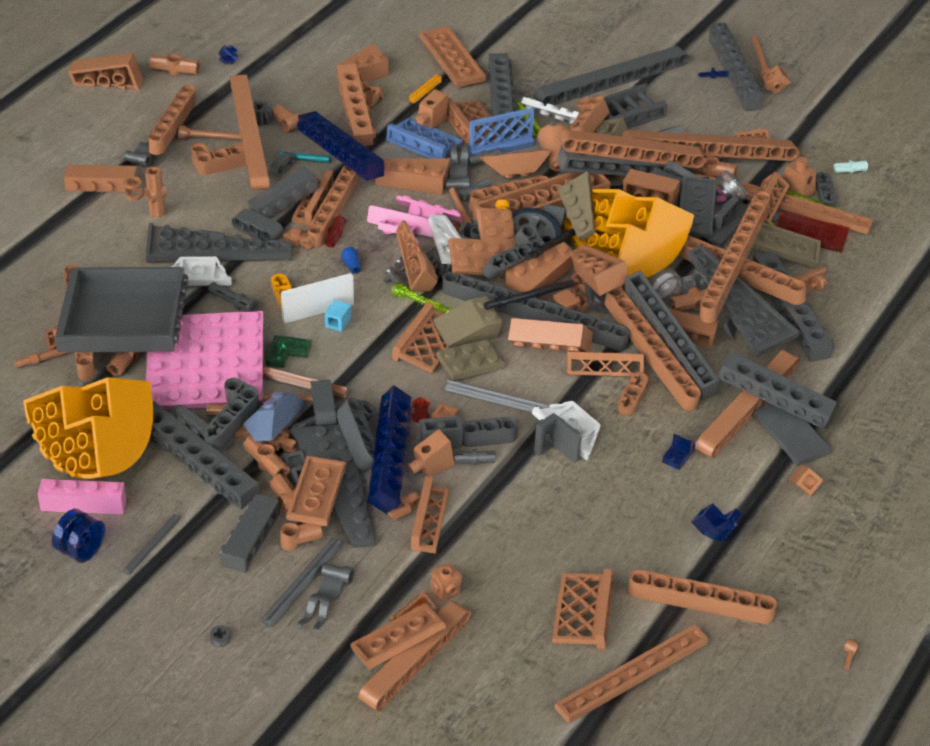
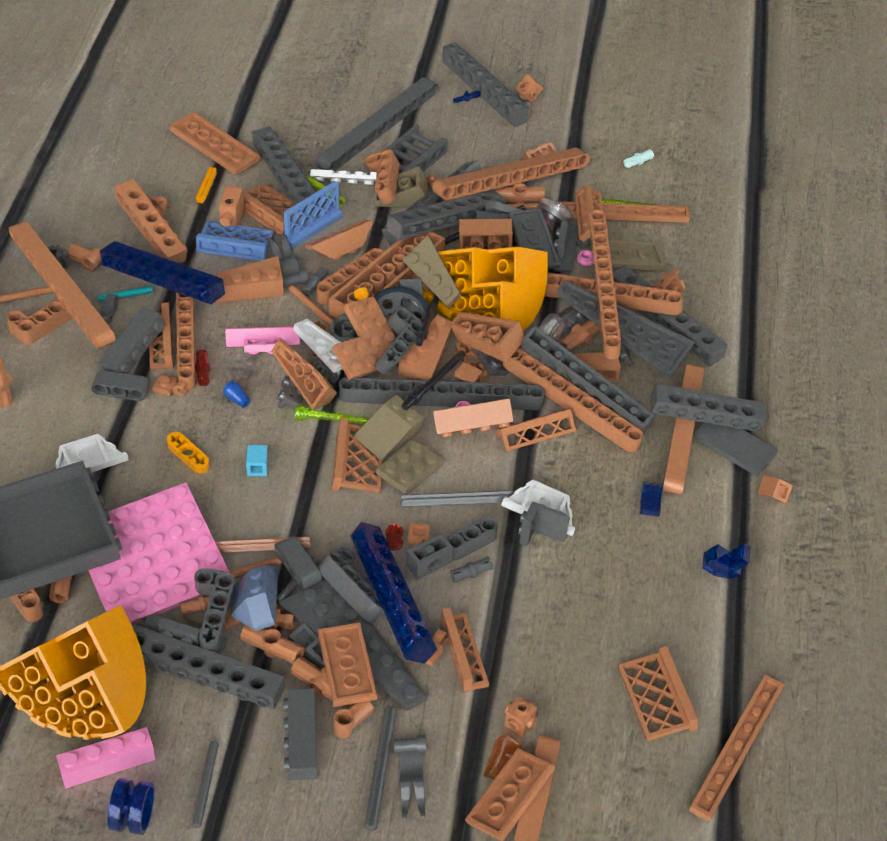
camera: 25 degrees left, 5 degrees up
(169, 244) = (47, 431): dark grey wing -> none
(238, 300) = (147, 475): dark grey pin -> none
(283, 347) = (222, 512): clear green plate -> none
(316, 297) = (229, 448): white tile -> none
(370, 62) = (138, 168): nougat wedge -> none
(423, 209) = (279, 318): bright pink bracket -> none
(432, 455) = (435, 583): nougat torso -> none
(475, 159) = (300, 245): dark grey pin -> none
(549, 139) = (368, 208): nougat cone -> none
(622, 148) = (450, 199): nougat beam -> none
(633, 400) = (574, 458): nougat beam -> none
(702, 596) = (766, 642): nougat beam -> none
(757, 46) = (513, 82): nougat piece -> none
(800, 177) = (607, 182): nougat torso -> none
(828, 185) = (623, 181): dark grey beam -> none
(831, 235) = (650, 231): clear red tile -> none

